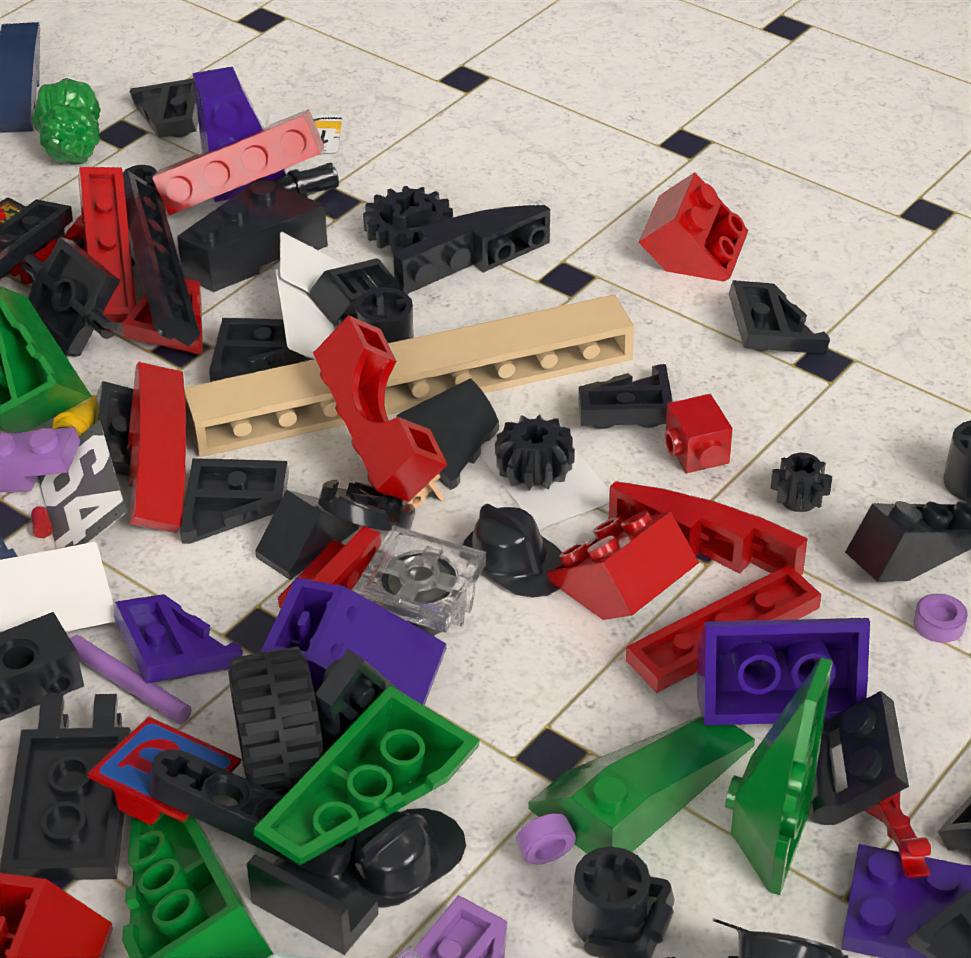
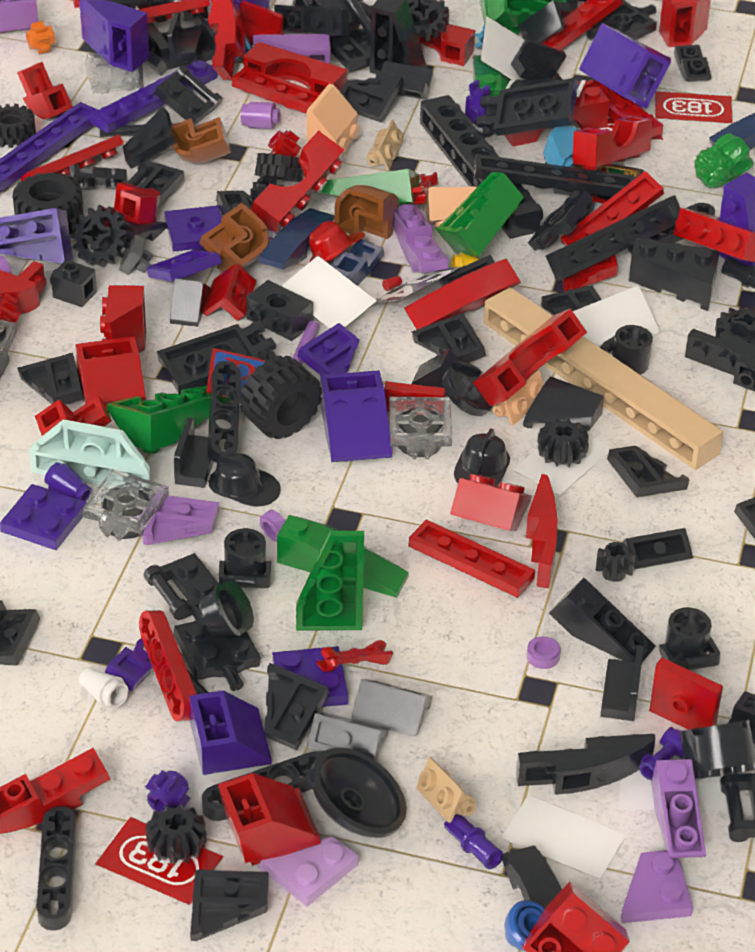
camera: 65 degrees right, 0 degrees up
(303, 264) = (661, 307): white sticker -> none
(340, 287) = (656, 316): black slope -> none
(345, 694) = (303, 418): black wing -> none
(371, 771) = (270, 441): green wedge -> none
(698, 433) = (629, 507): red brick -> none
(757, 666) = (430, 580): dark purple slope -> none
(773, 433) = (659, 548): none -> black slope
(870, 756) = (392, 627): black plate -> none

